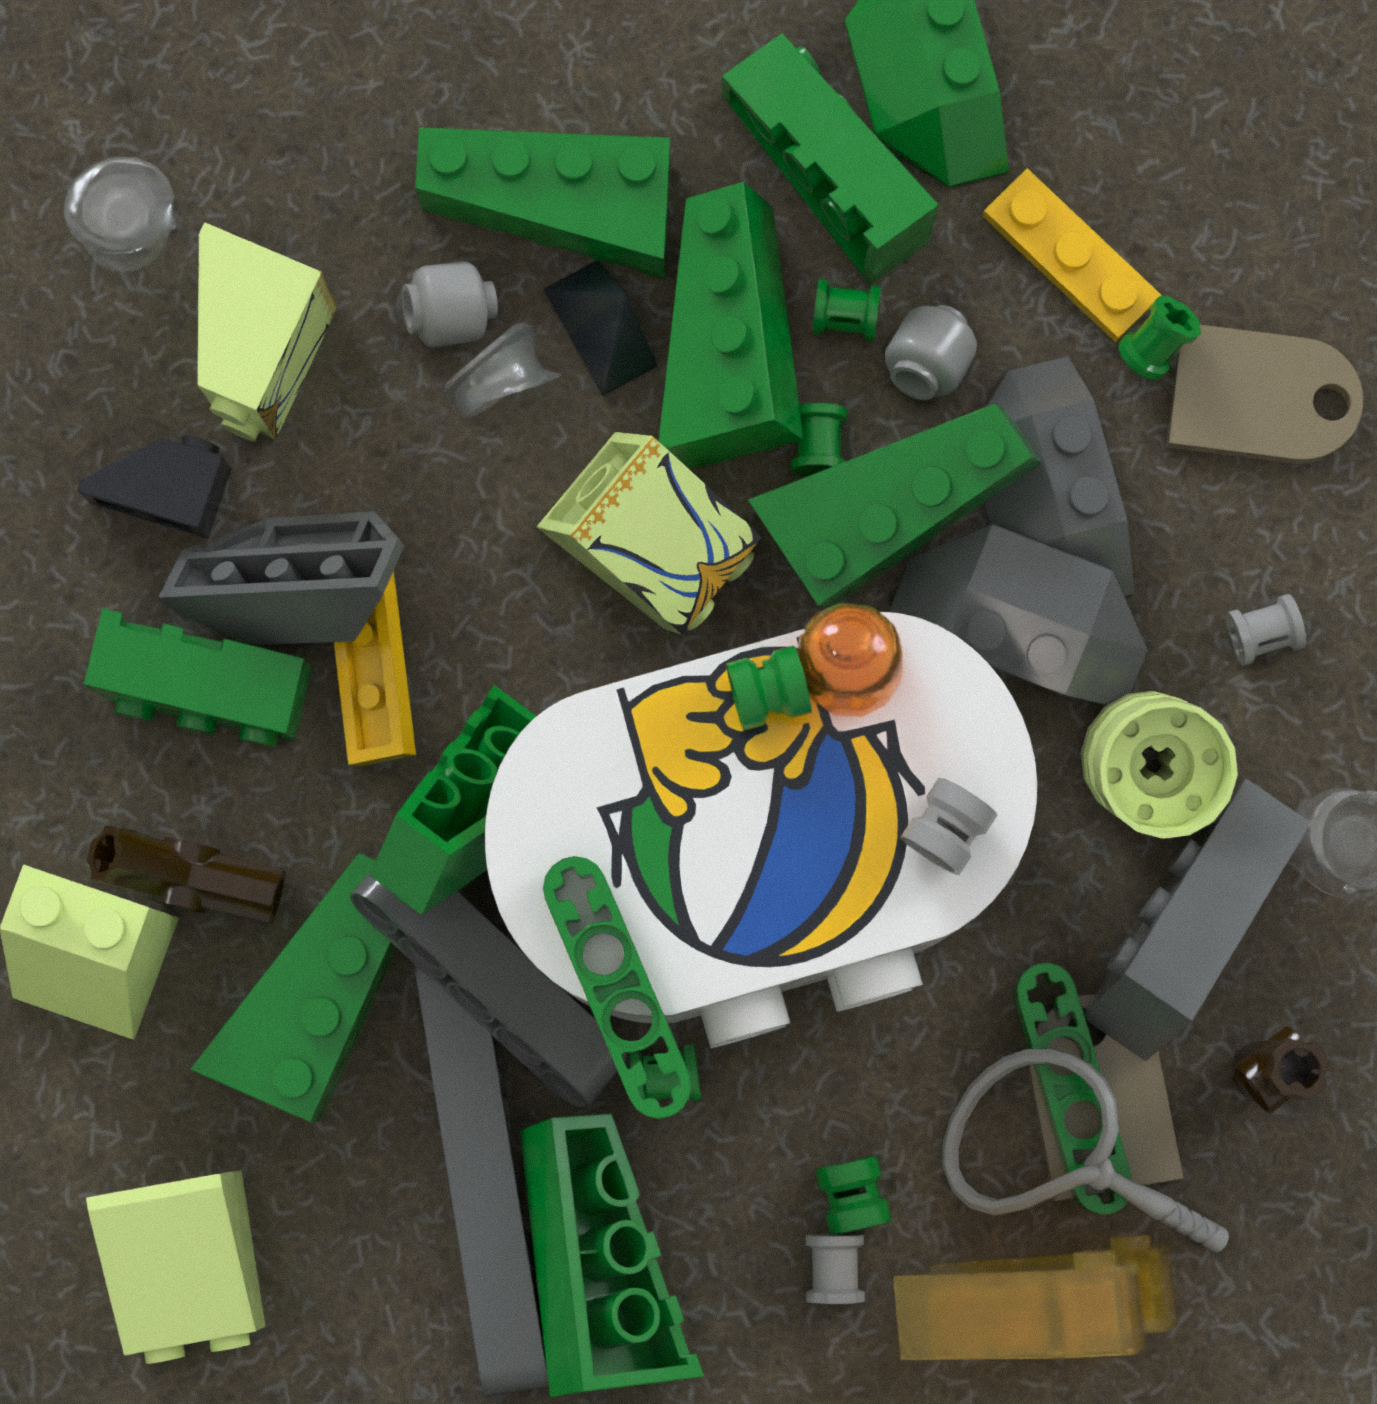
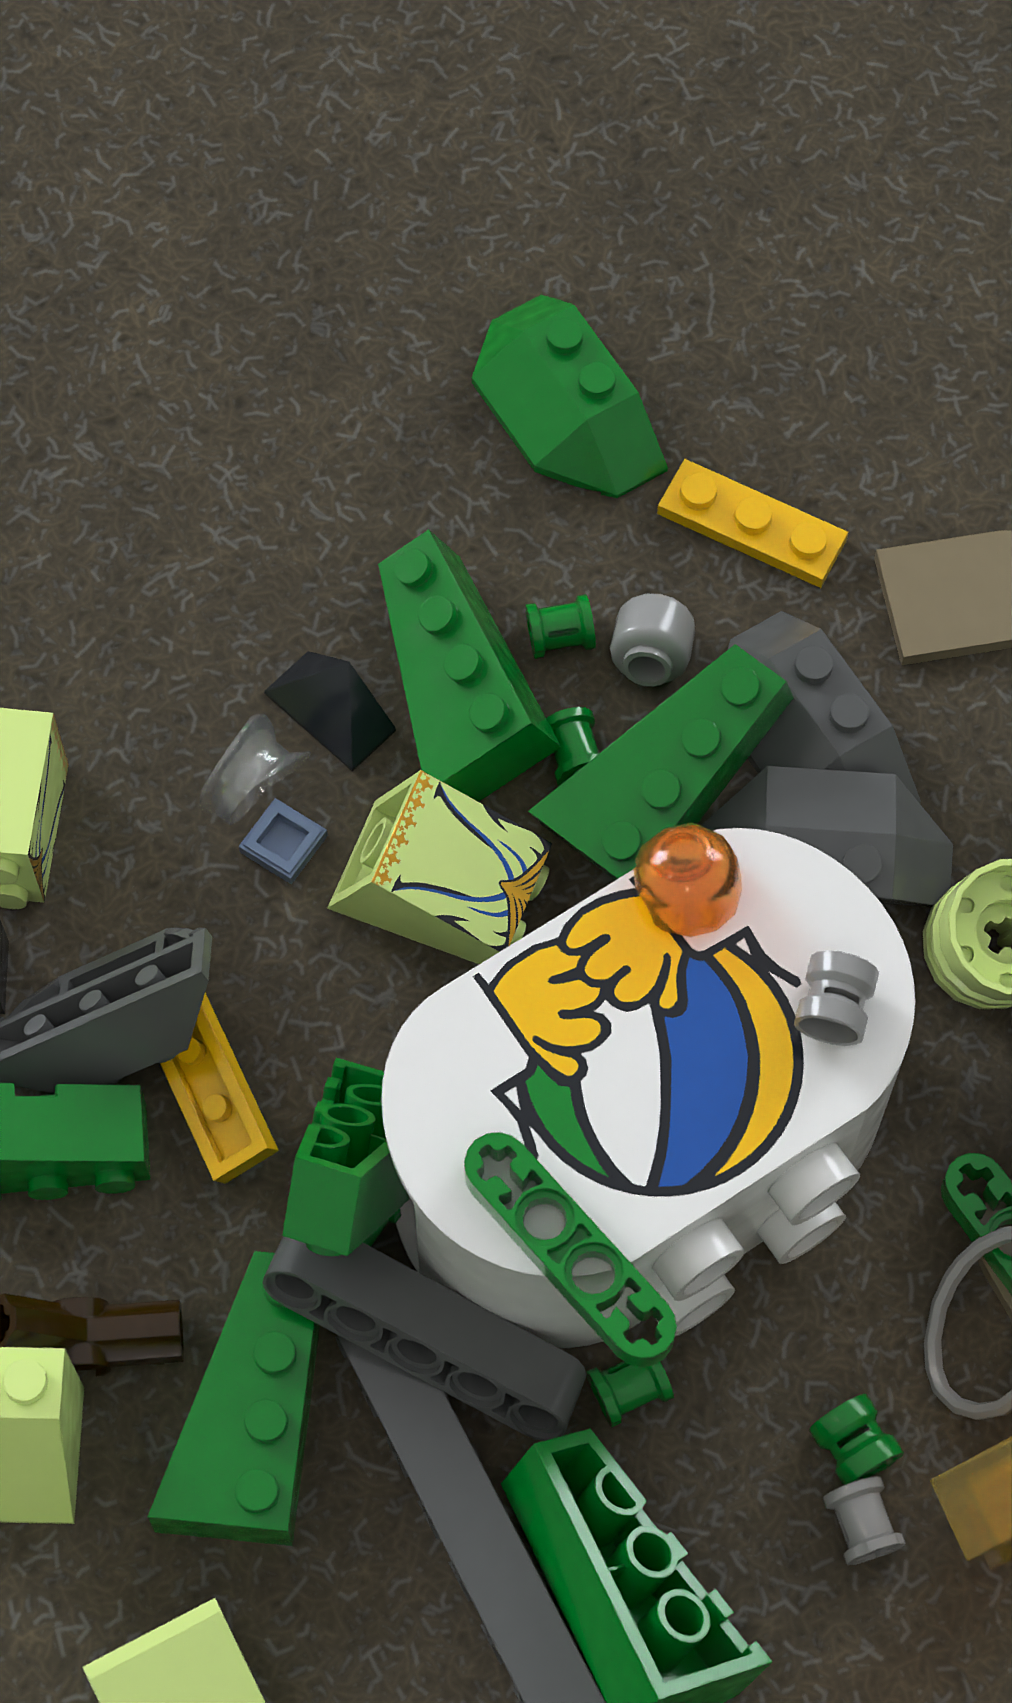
camera: 20 degrees left, 15 degrees down
(448, 304) = (178, 726): light grey head -> none
(514, 447) = (283, 841): none -> sand blue tile
(554, 188) = (248, 596): green wedge -> none
(774, 686) = (626, 921): green wheel -> none
(831, 157) = (503, 497): green wedge -> none
(1159, 338) = (861, 566): green bush -> none

